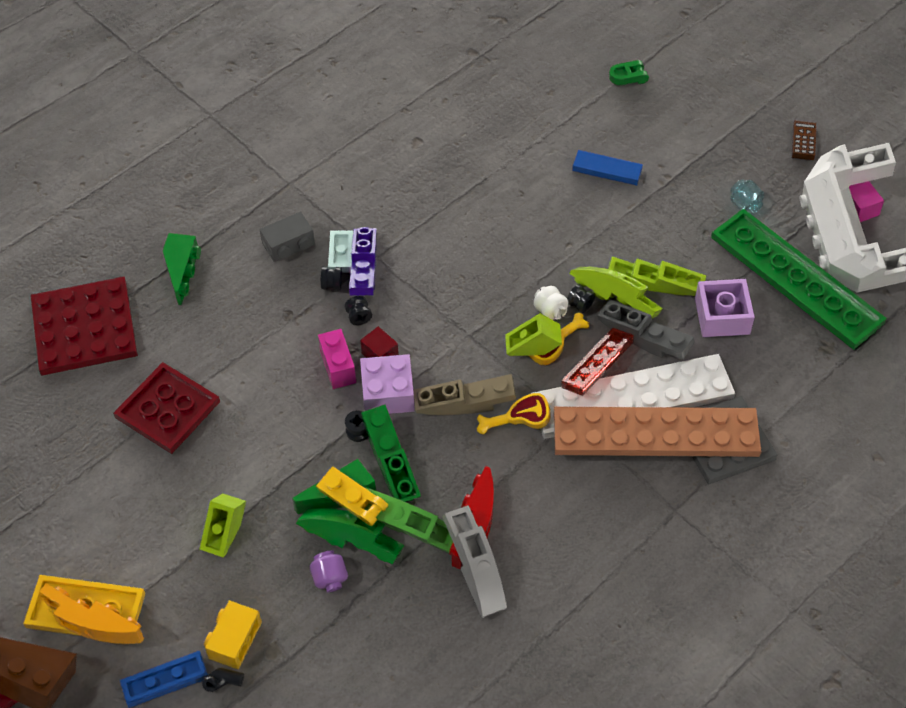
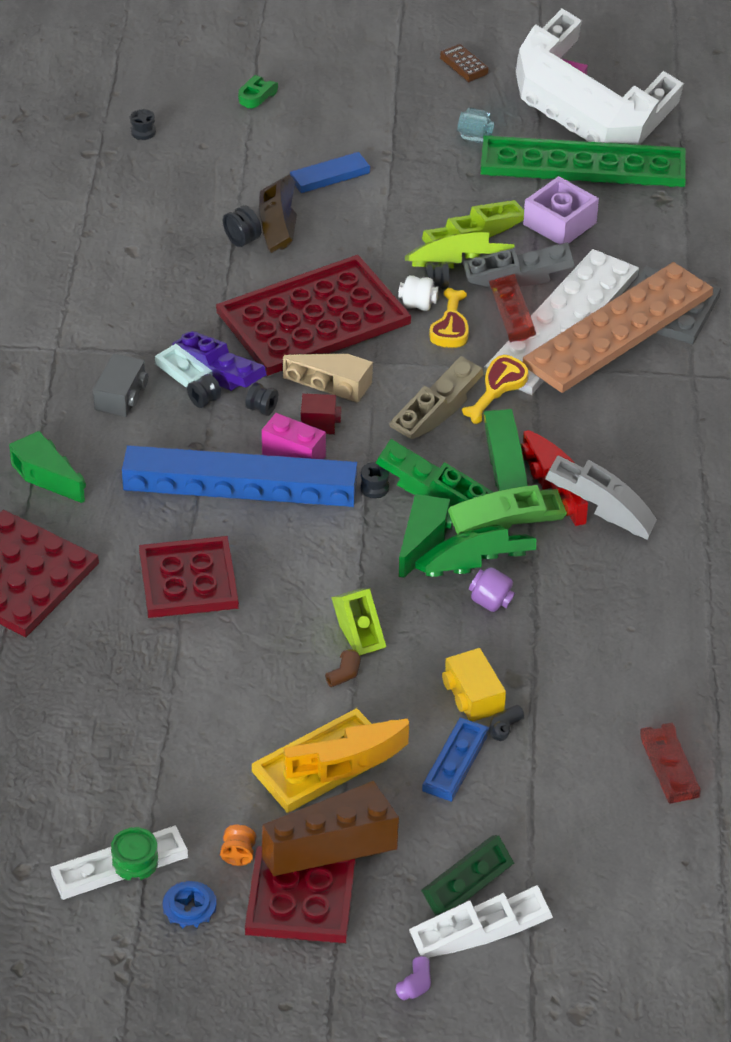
camera: 45 degrees left, 10 degrees down
(179, 553) = (348, 668): none -> reddish brown arm
(279, 359) = (239, 476): none -> blue brick
(351, 496) = (453, 516): yellow plate -> none
(388, 382) = (361, 431): lavender brick -> none
(427, 327) = (332, 373): none -> tan slope
(460, 474) = (504, 449): none -> green slope
(467, 270) = (313, 313): none -> dark red plate
(494, 170) = (242, 226): none -> black wheel
(525, 52) = (142, 124): none -> black wheel
(527, 176) = (276, 213): none -> dark brown slope
(534, 337) = (441, 322): lime slope -> none

